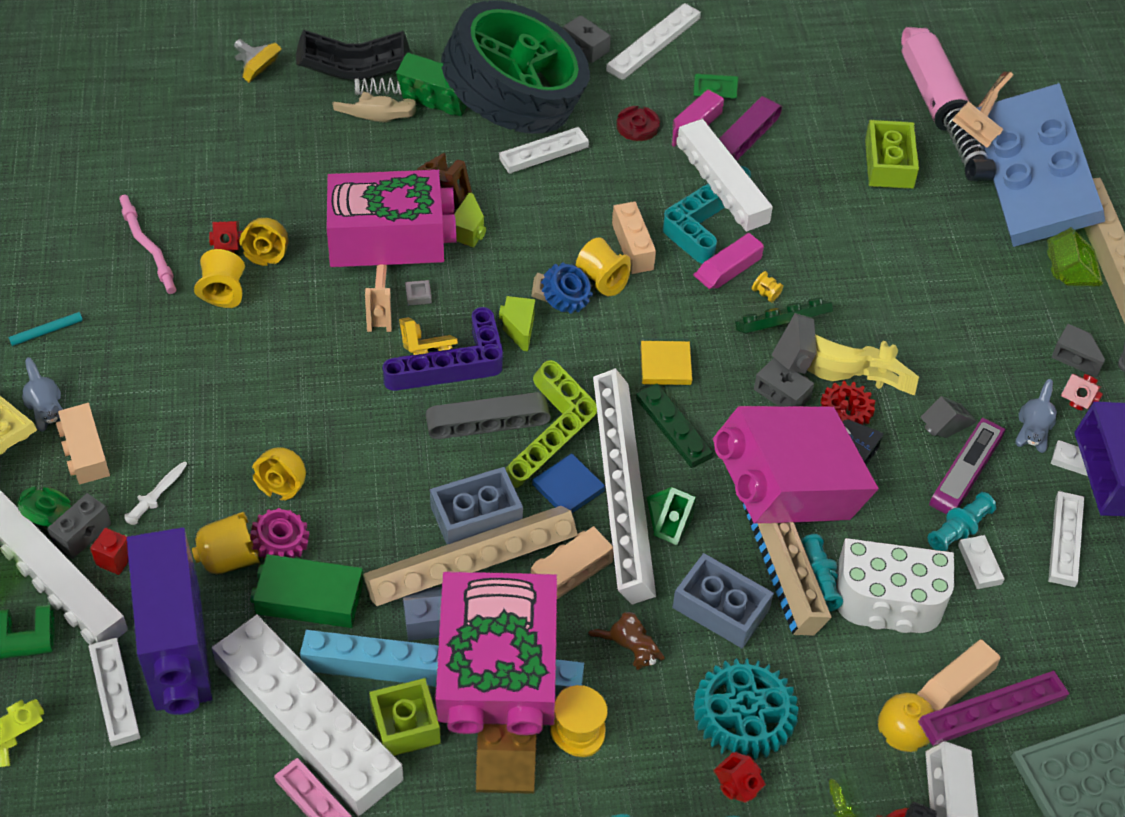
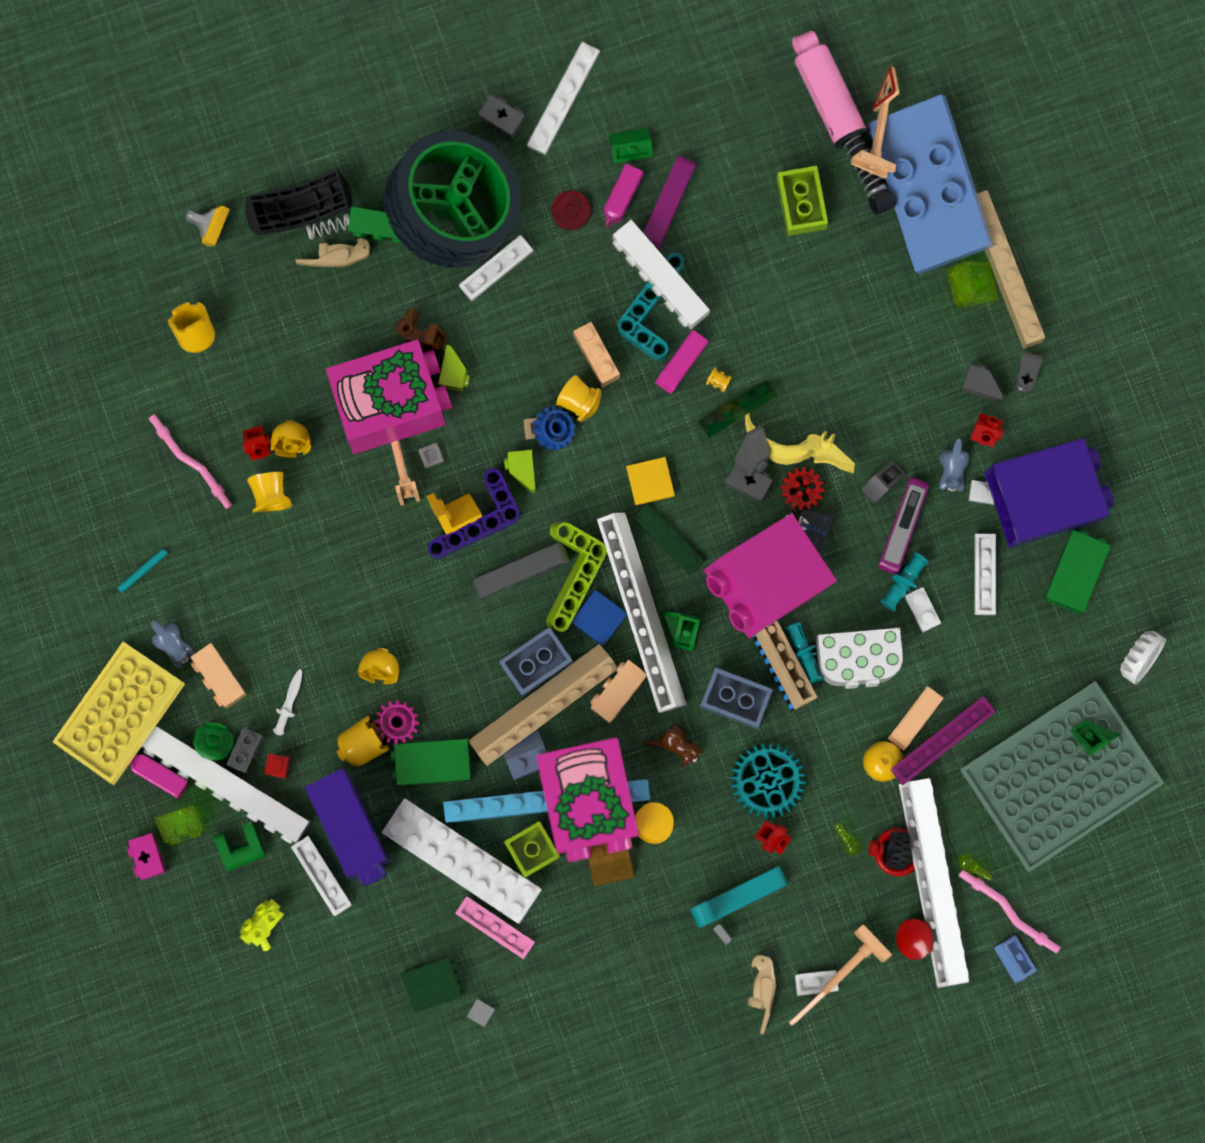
camera: 10 degrees left, 30 degrees up
(200, 127) = (192, 327): none -> yellow cylinder

